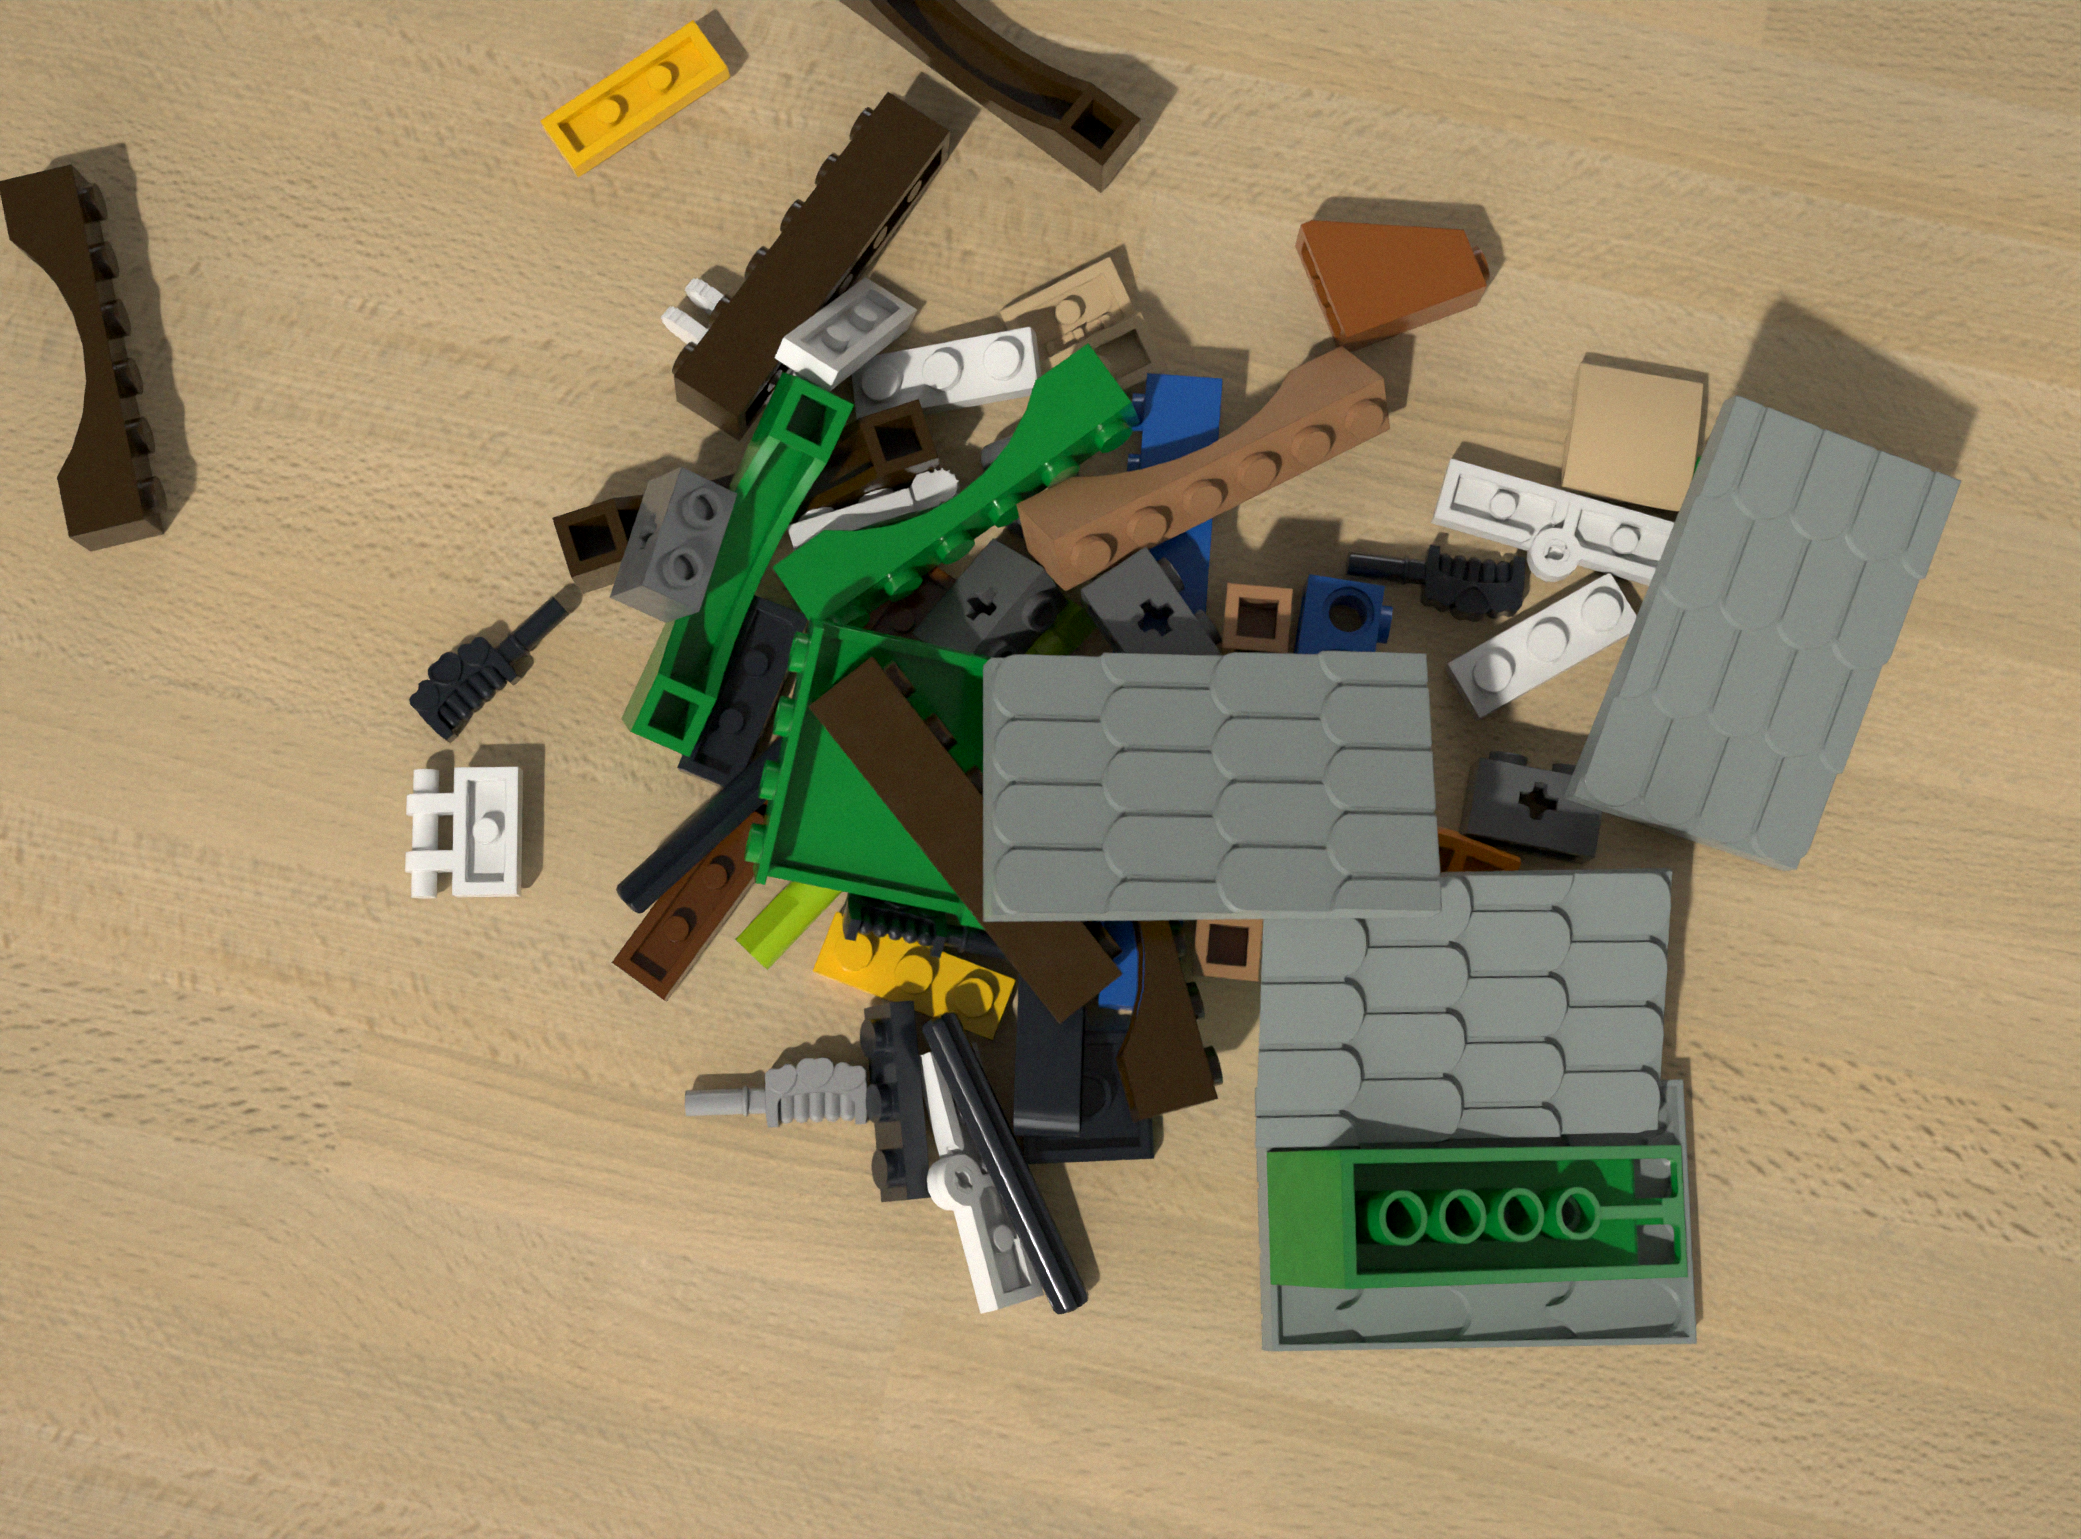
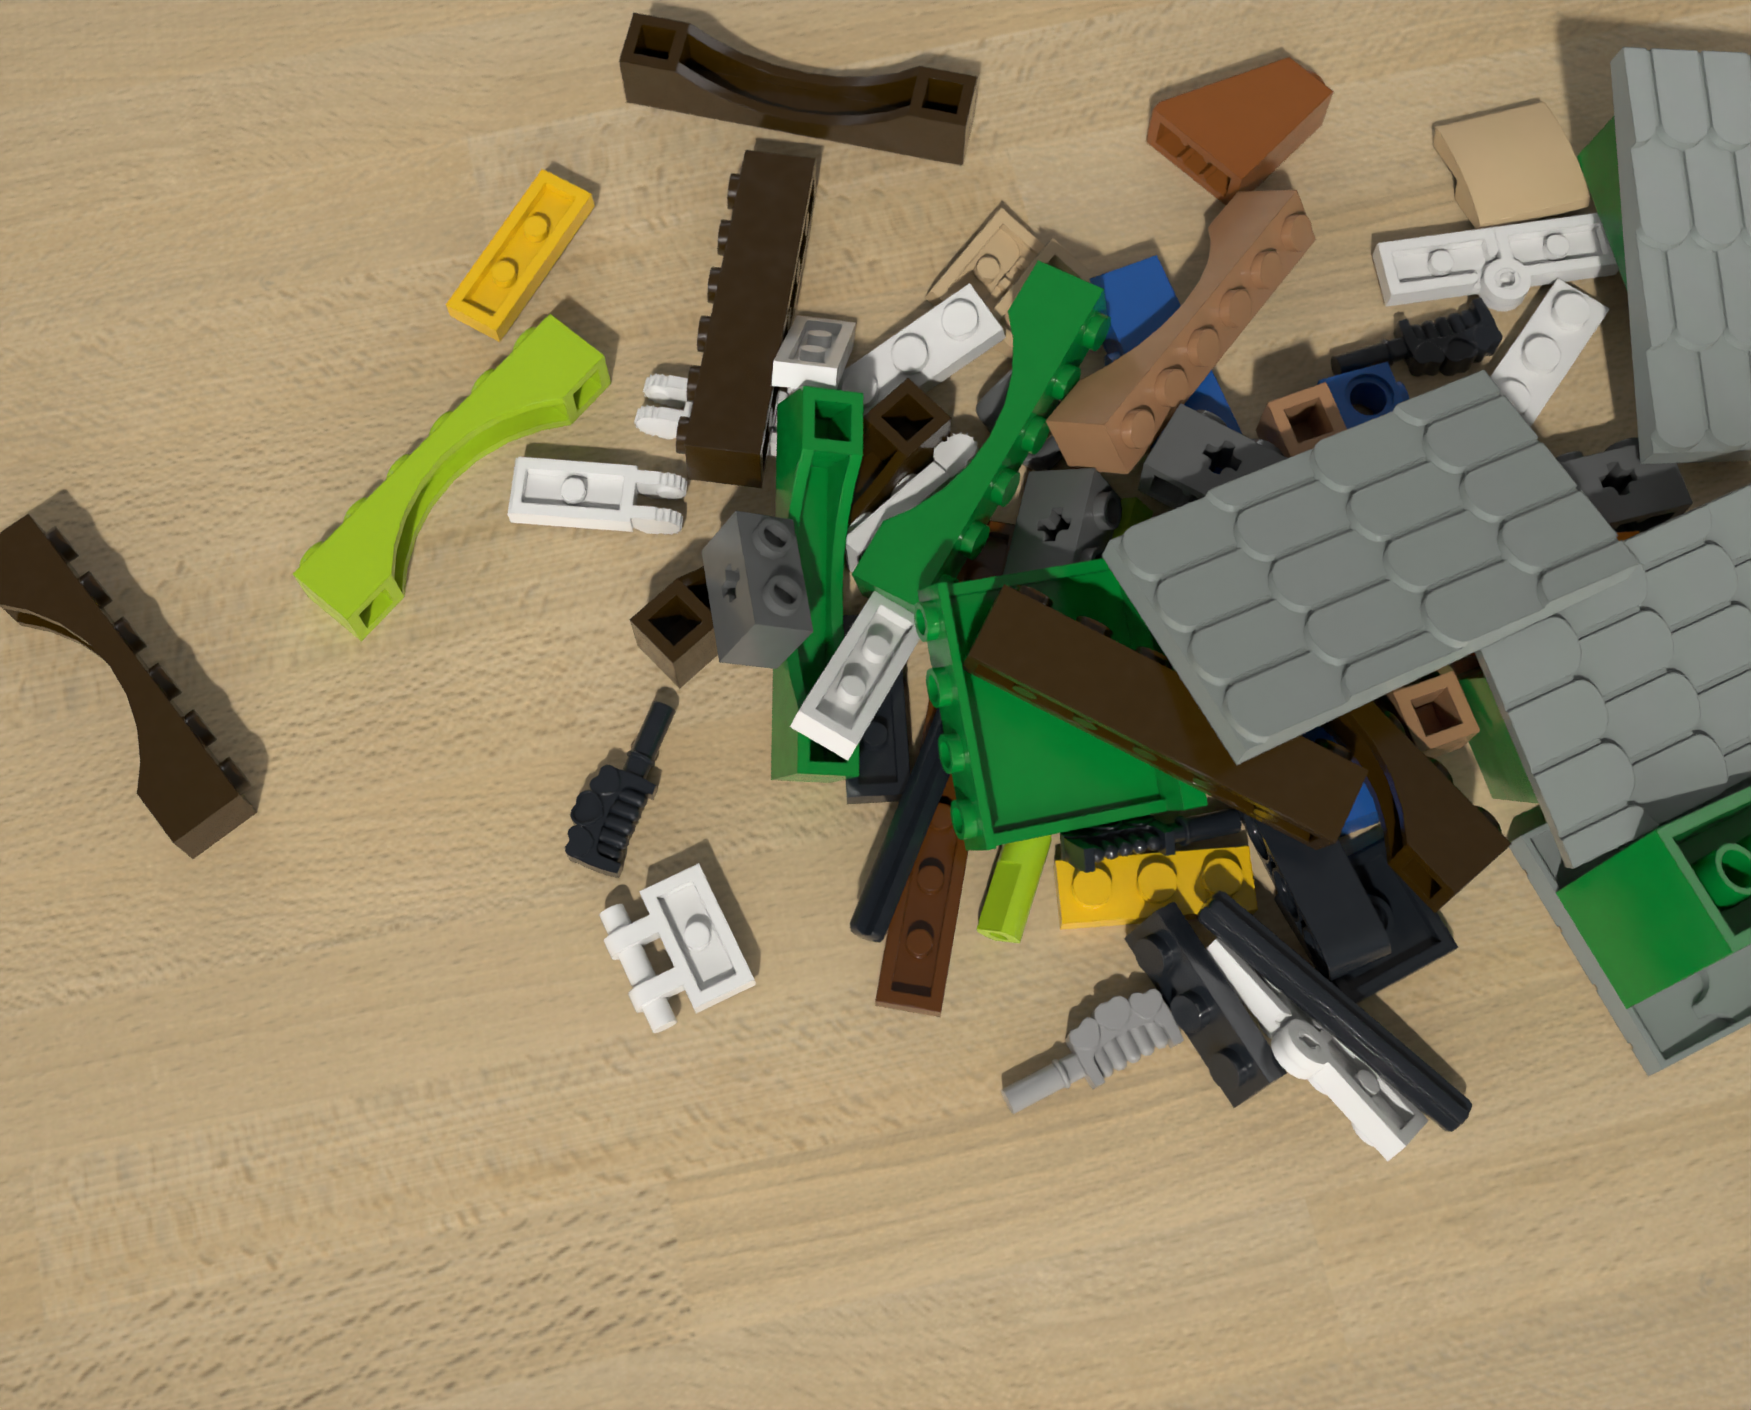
camera: 25 degrees left, 10 degrees down
(355, 345) = (539, 387): none -> lime arch
(587, 371) = (593, 496): none -> white hinge
(723, 669) = (858, 676): none -> white plate

